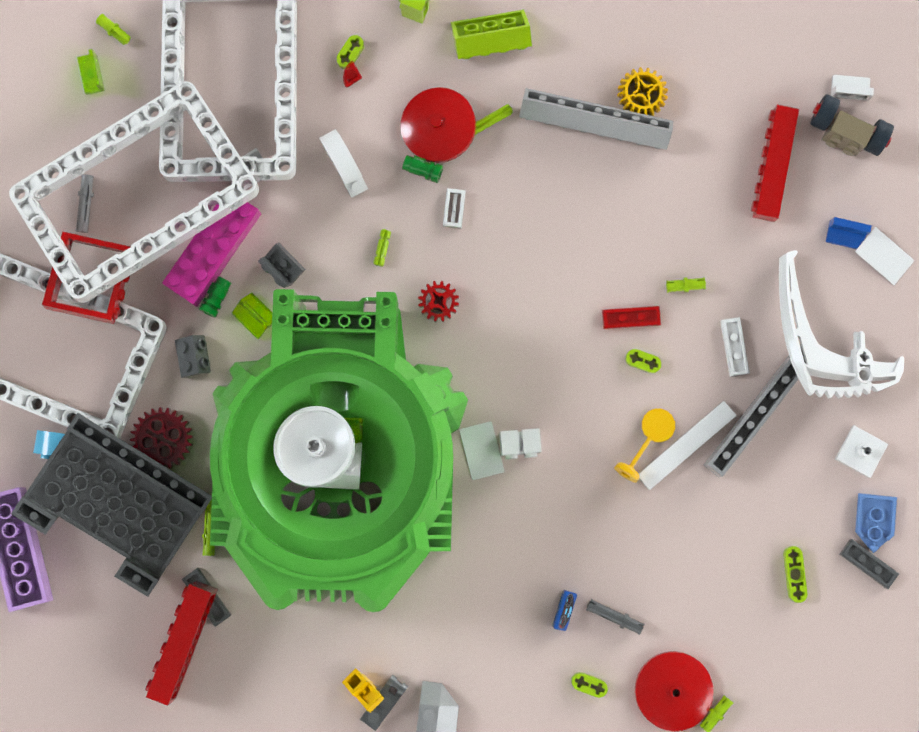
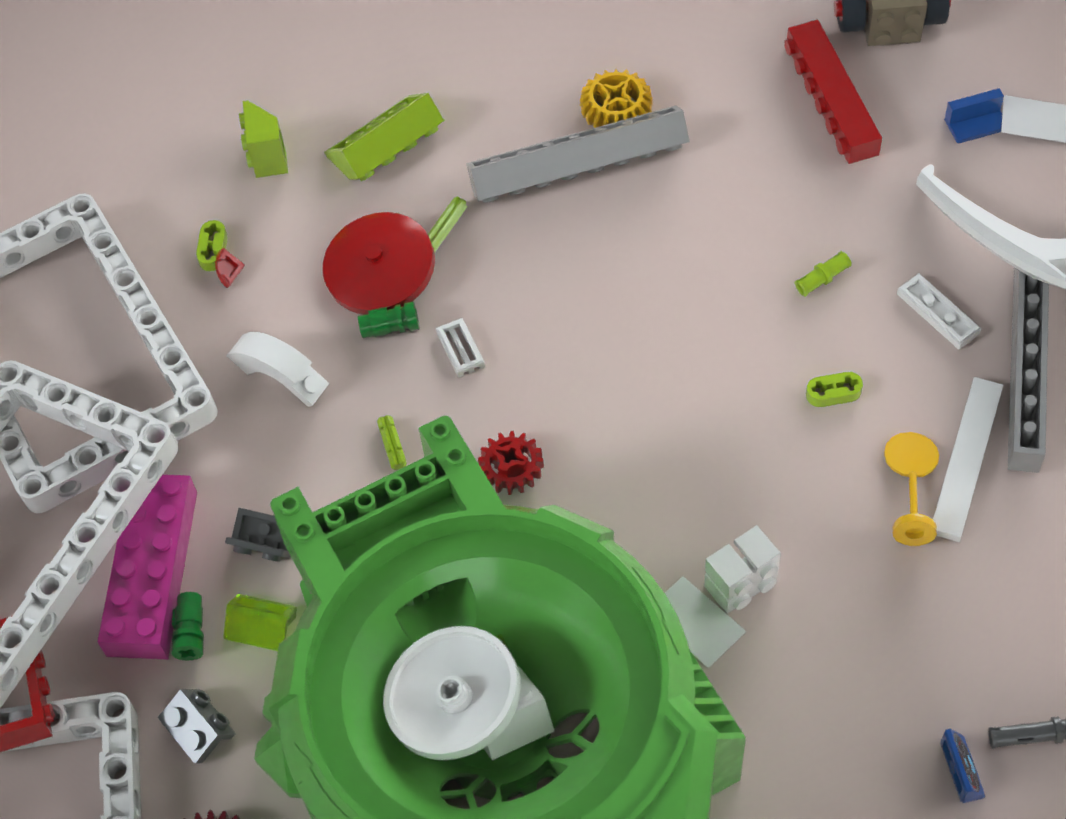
camera: 20 degrees left, 25 degrees down
(631, 317) = (780, 349): red tile -> none

